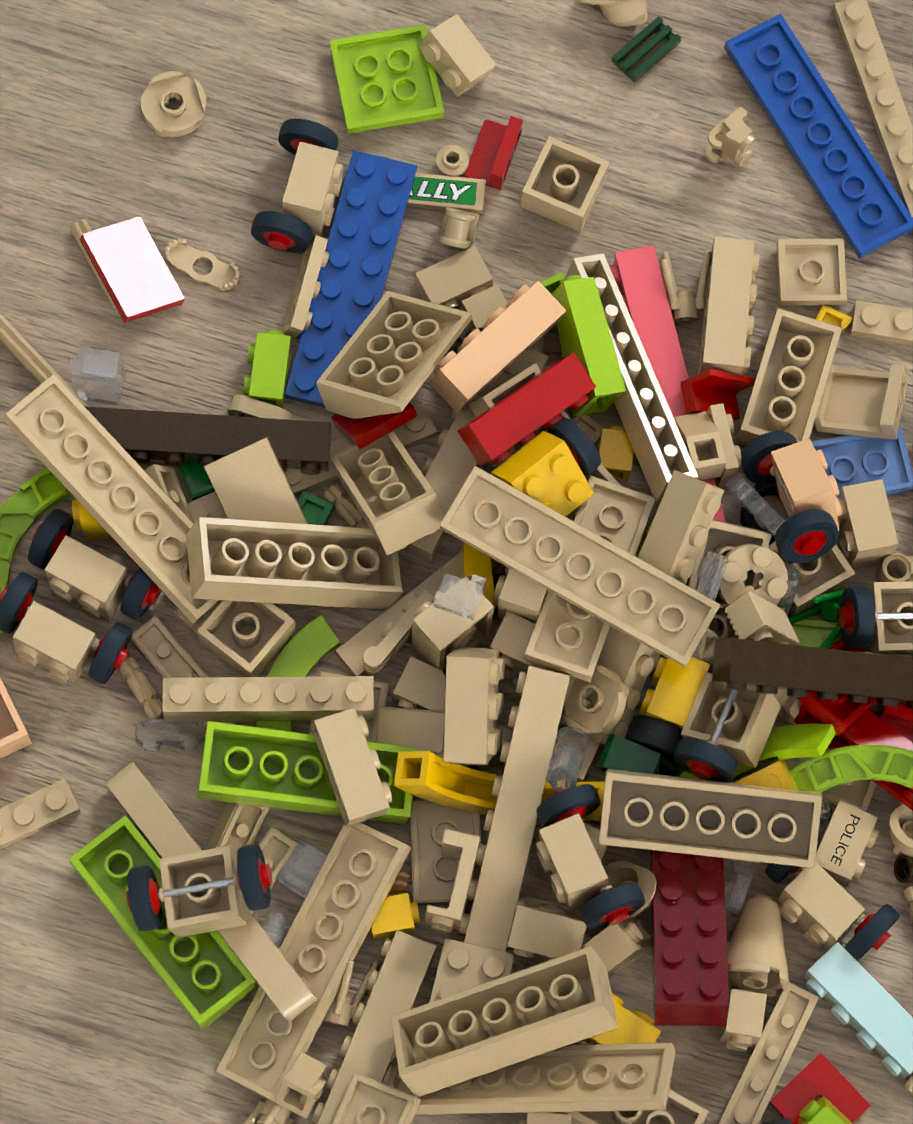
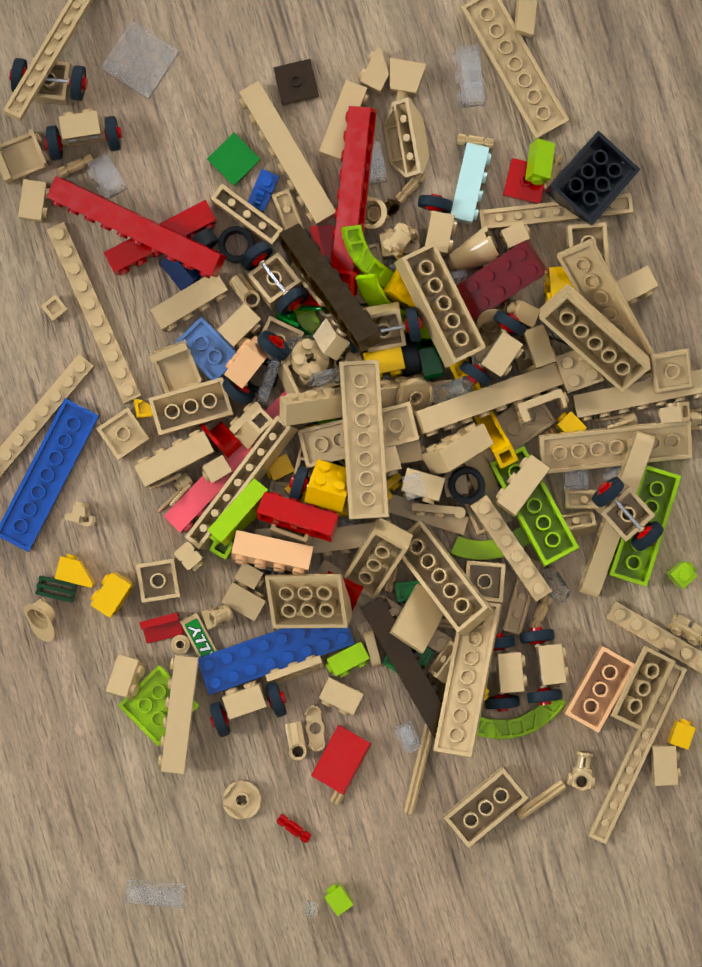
camera: 115 degrees left, 15 degrees up
(50, 928) = (681, 574): none -> lime brick
(82, 148) = (293, 828): none -> red axle
(205, 228) = (295, 738): none -> tan piece
(223, 326) = (341, 696): none -> tan brick
(355, 91) = (180, 714): none -> tan brick
(396, 669) = (466, 499): none -> black tyre
(568, 241) = (190, 556): none -> tan brick
(587, 108) = (112, 594): none -> yellow brick
(654, 84) = (73, 571): none -> yellow slope
(673, 354) = (216, 469): none -> tan brick
(850, 836) = (399, 240): none -> tan piece

